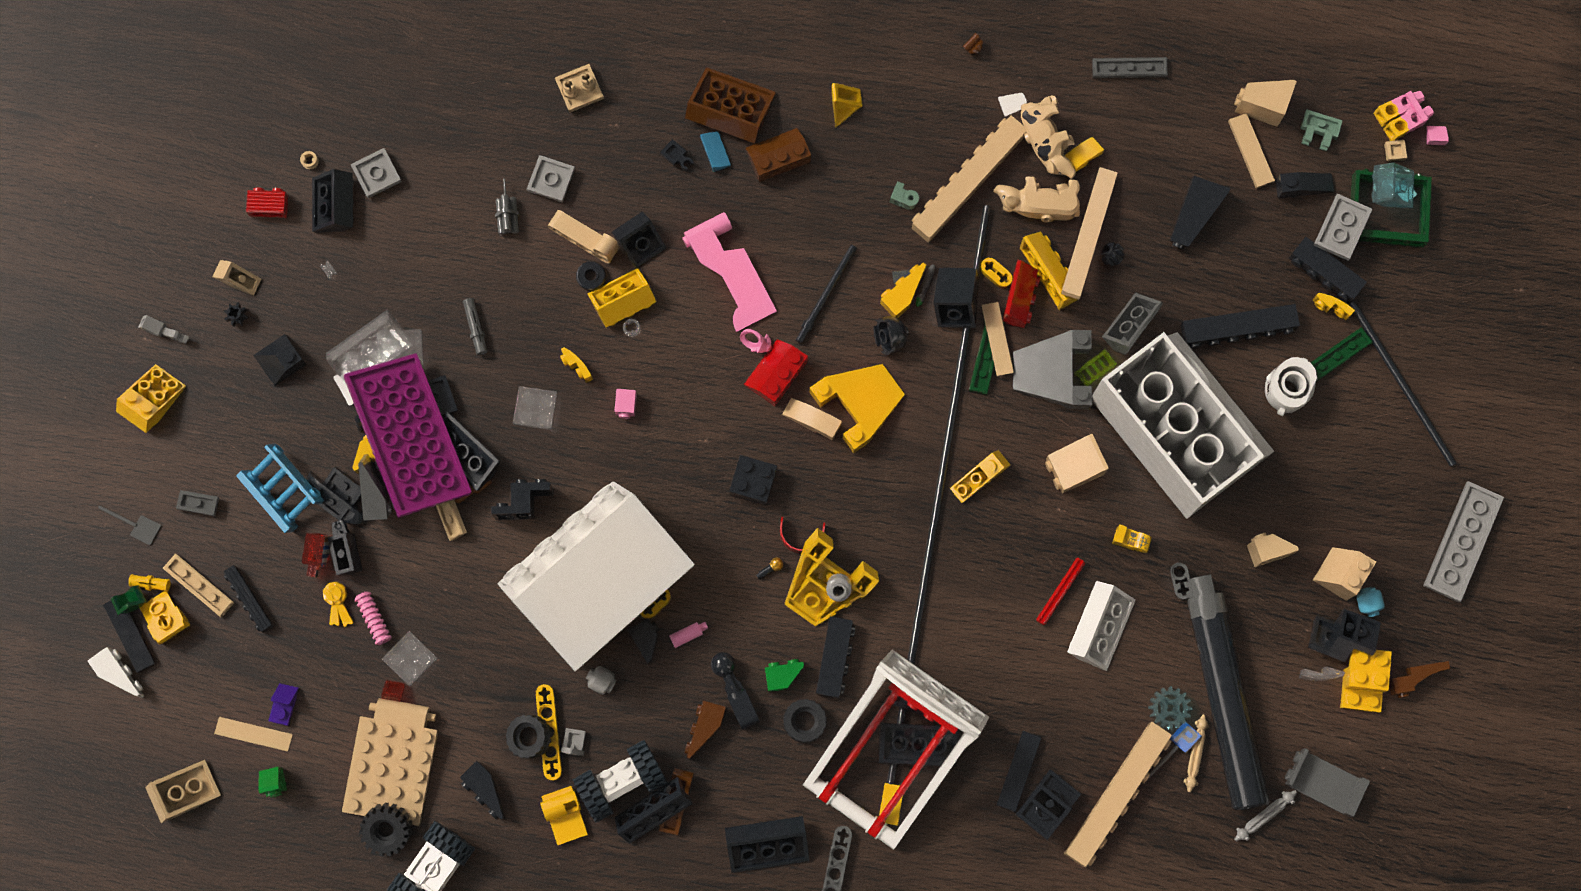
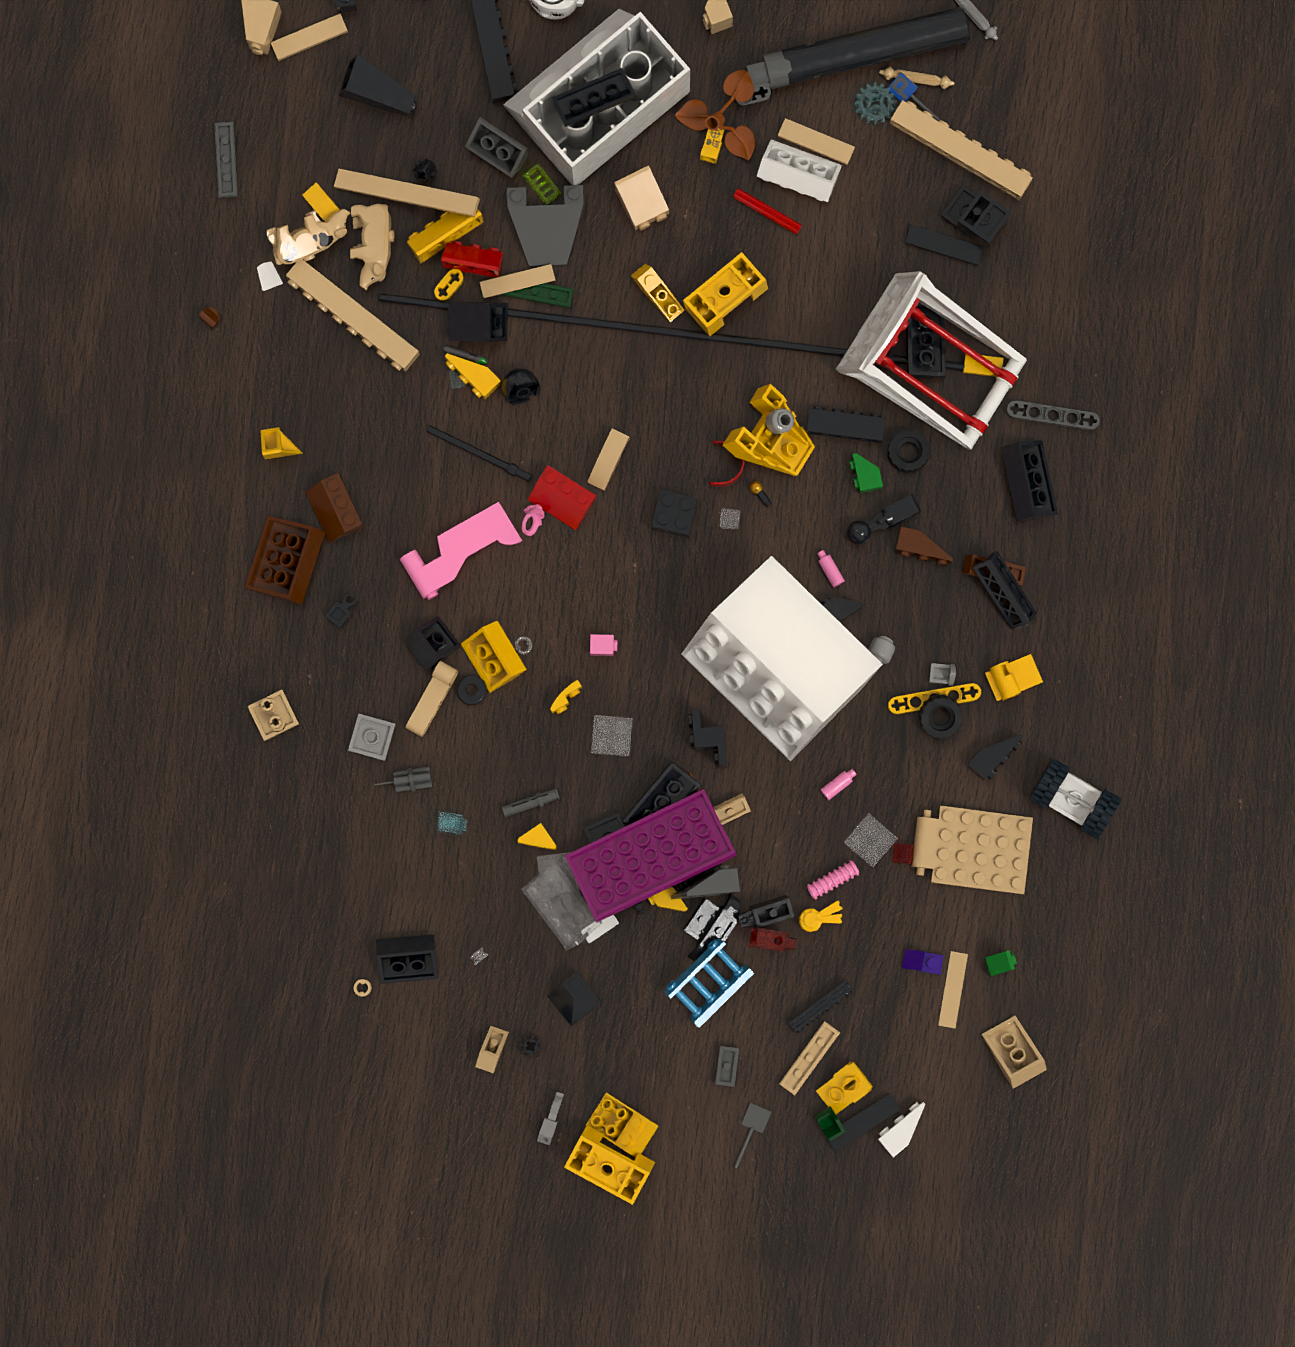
camera: 90 degrees left, 5 degrees up
(92, 393) = (591, 1155): none -> yellow plate
(149, 582) = (810, 1106): yellow pin -> none
(267, 203) = (411, 1025): red brick -> none
(376, 173) = (374, 916): light grey plate -> none
(379, 841) = (1051, 842): black tyre -> none
(438, 332) = (537, 837): none -> yellow slope
(458, 247) = (451, 823): none -> clear light blue slope
(469, 629) = (838, 784): none -> bright pink cylinder
(619, 780) = (979, 623): black plate -> none
(715, 151) = (334, 572): dark azure slope -> none
(746, 536) = (729, 518): none -> clear tile
(866, 394) = (584, 405): yellow wedge -> none
(904, 198) = (376, 379): sand green leg -> none
(985, 558) = (710, 307): none -> yellow plate
(1131, 645) = (816, 141): none -> tan tile
(1162, 522) = (695, 116): none -> dark orange plant
(1174, 402) = (593, 97): none -> black slope

